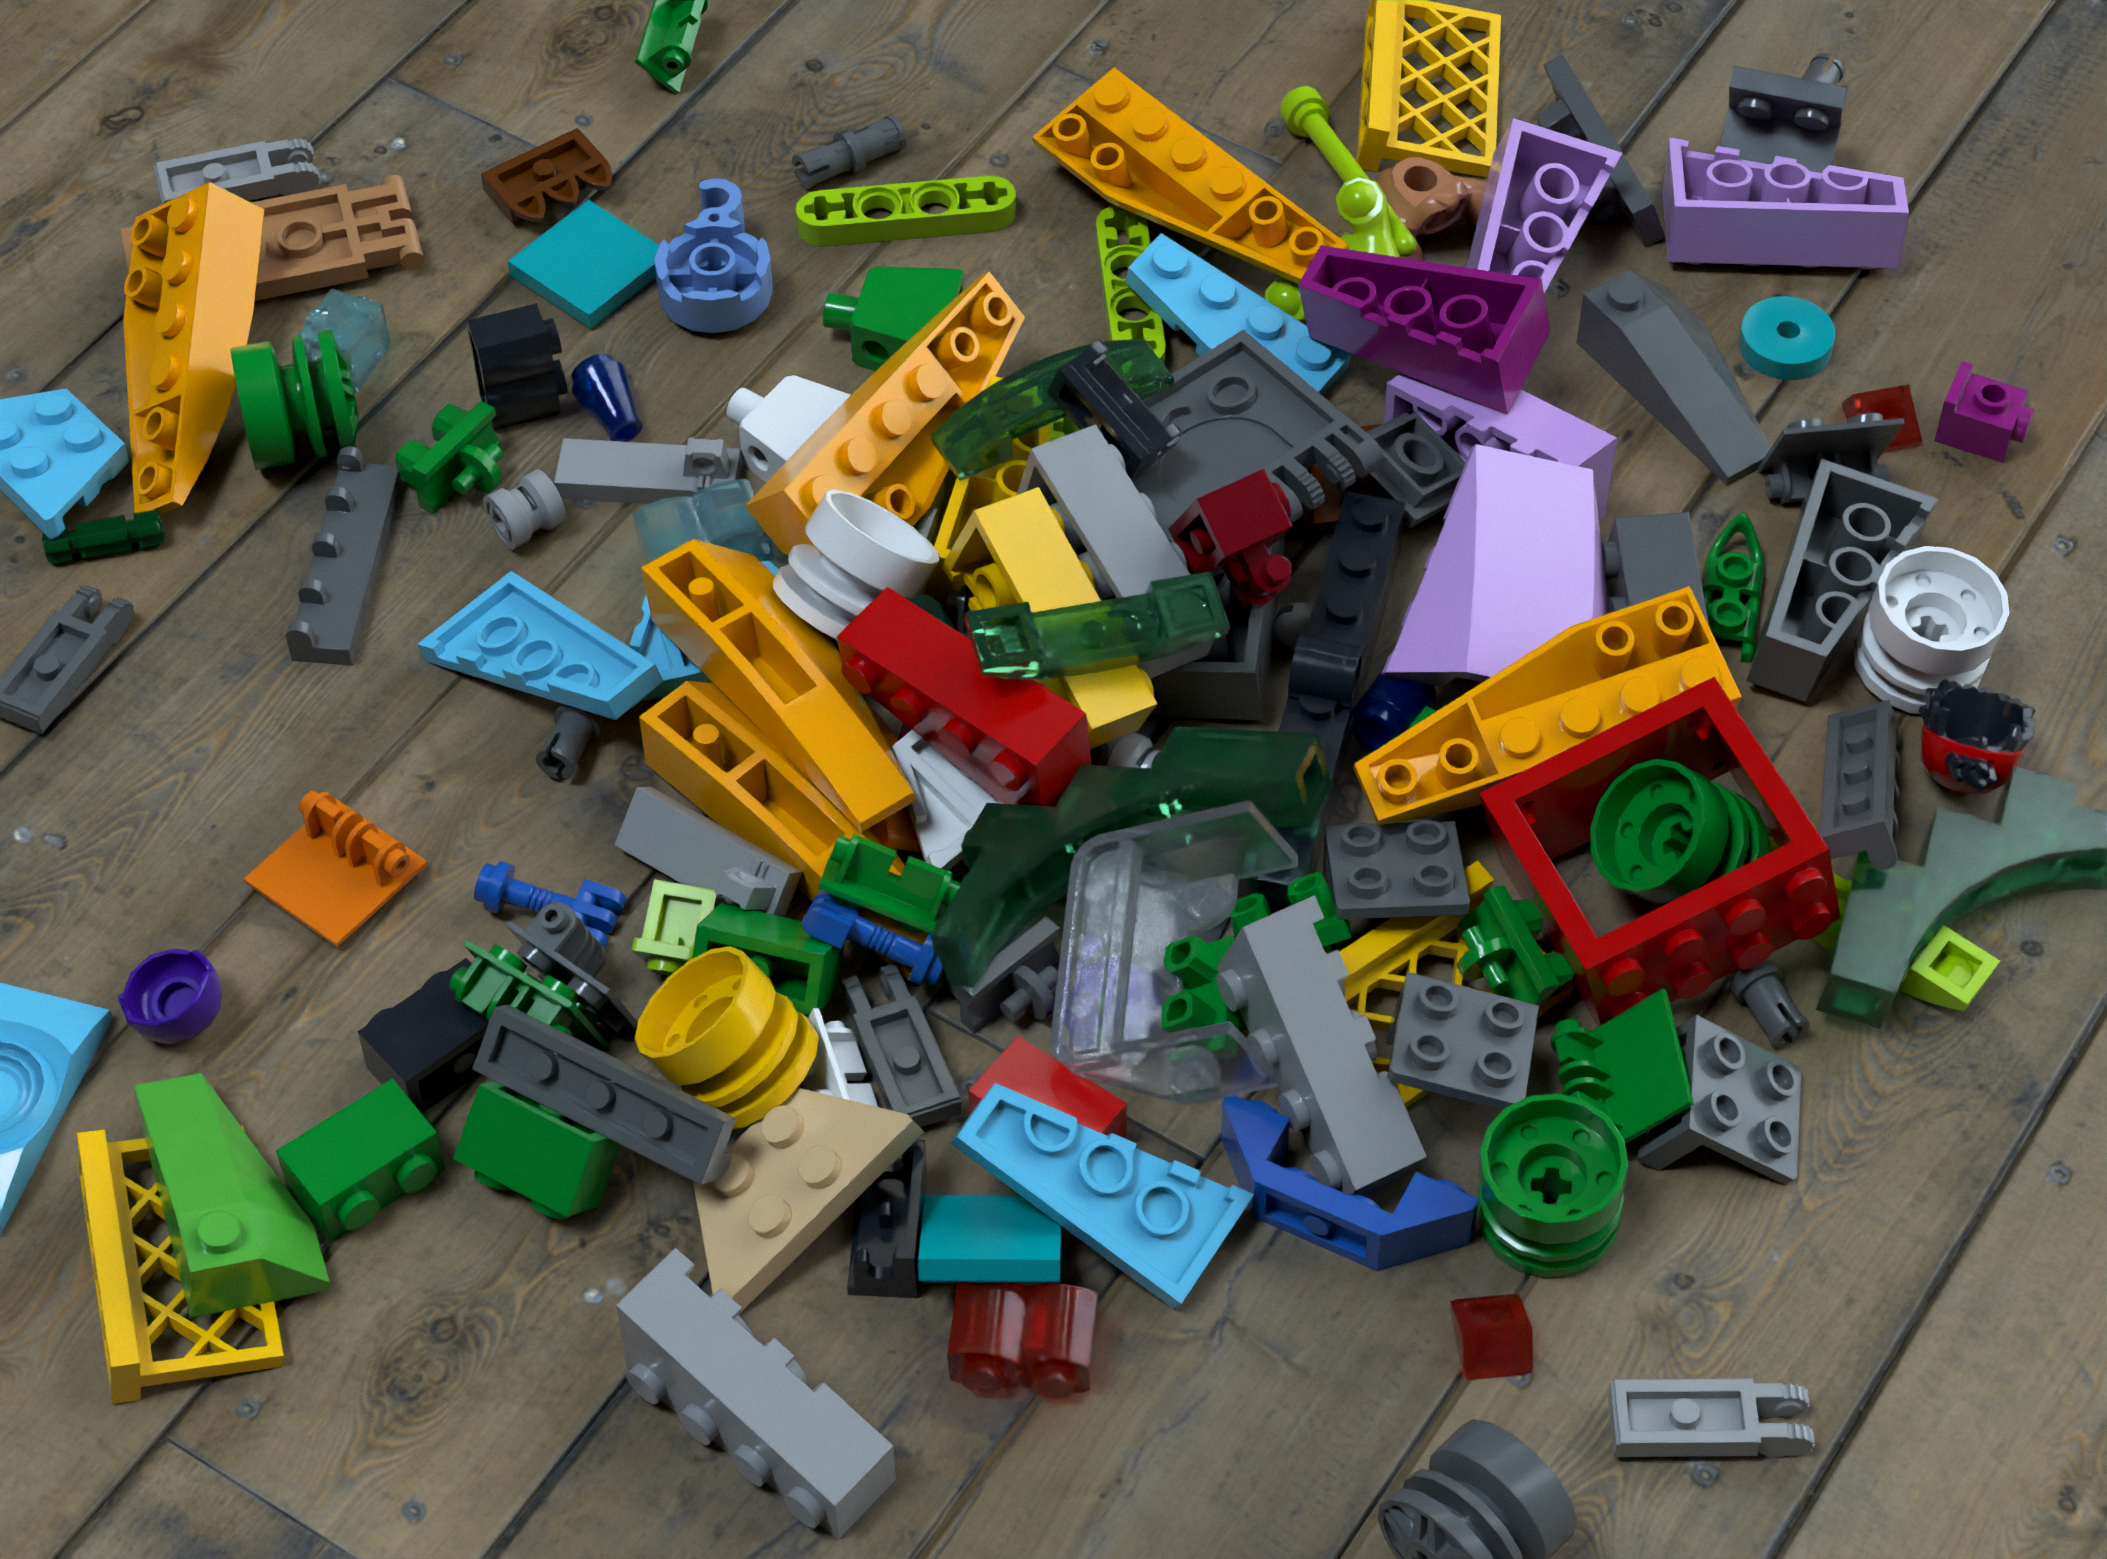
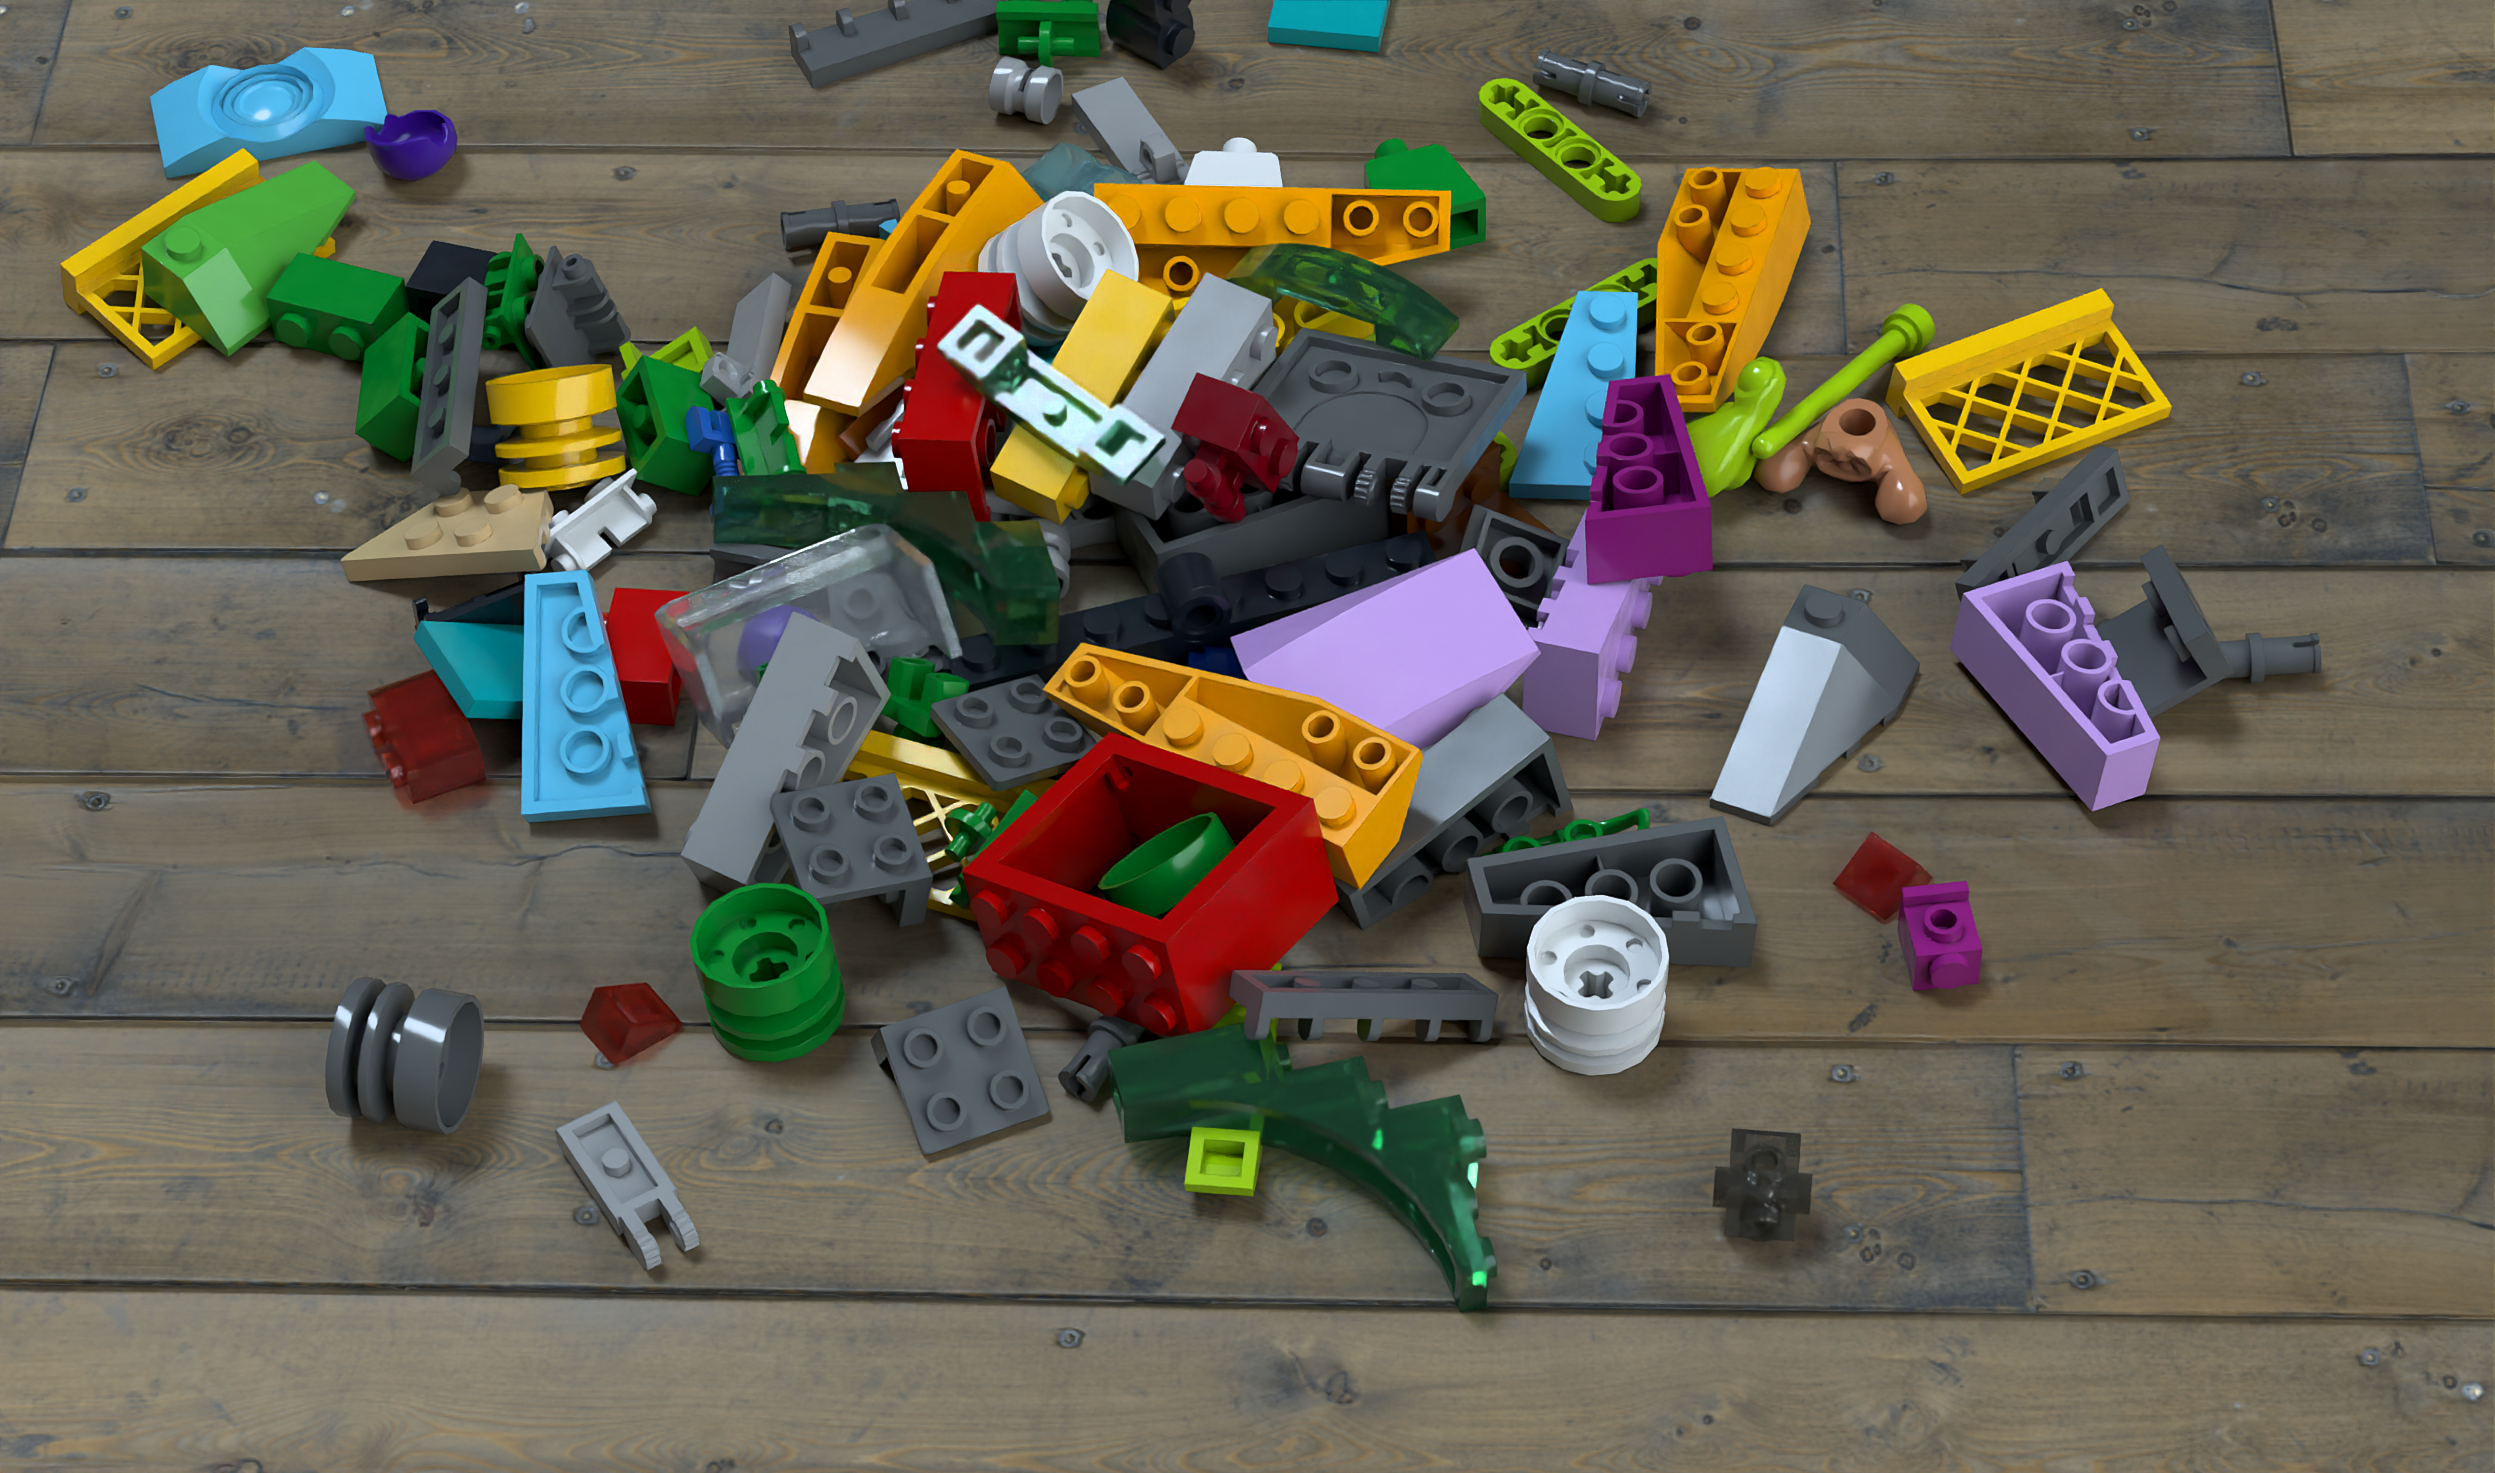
camera: 60 degrees right, 5 degrees down
(334, 869) = (602, 169): orange hinge -> none
(541, 648) = (880, 162): medium azure wing -> none
(593, 904) = (645, 260): blue hinge -> none
(606, 394) = (1188, 77): clear blue cone -> none
(714, 272) = (1377, 70): medium blue piece -> none
(750, 1399) = (259, 600): light grey wedge -> none
(902, 1050) = (653, 544): dark grey hinge -> none
(1095, 394) = (1329, 319): black hinge -> none
(1426, 1222) = (670, 811): blue slope -> none
(1537, 200) = (1847, 517): lavender wedge -> none
(1626, 1066) = (907, 979): green hinge -> none
(1786, 338) = (1922, 792): teal piece -> none
(1804, 442) = (1772, 847): dark grey hinge -> none
(1973, 736) = (1497, 1065): black hair -> none

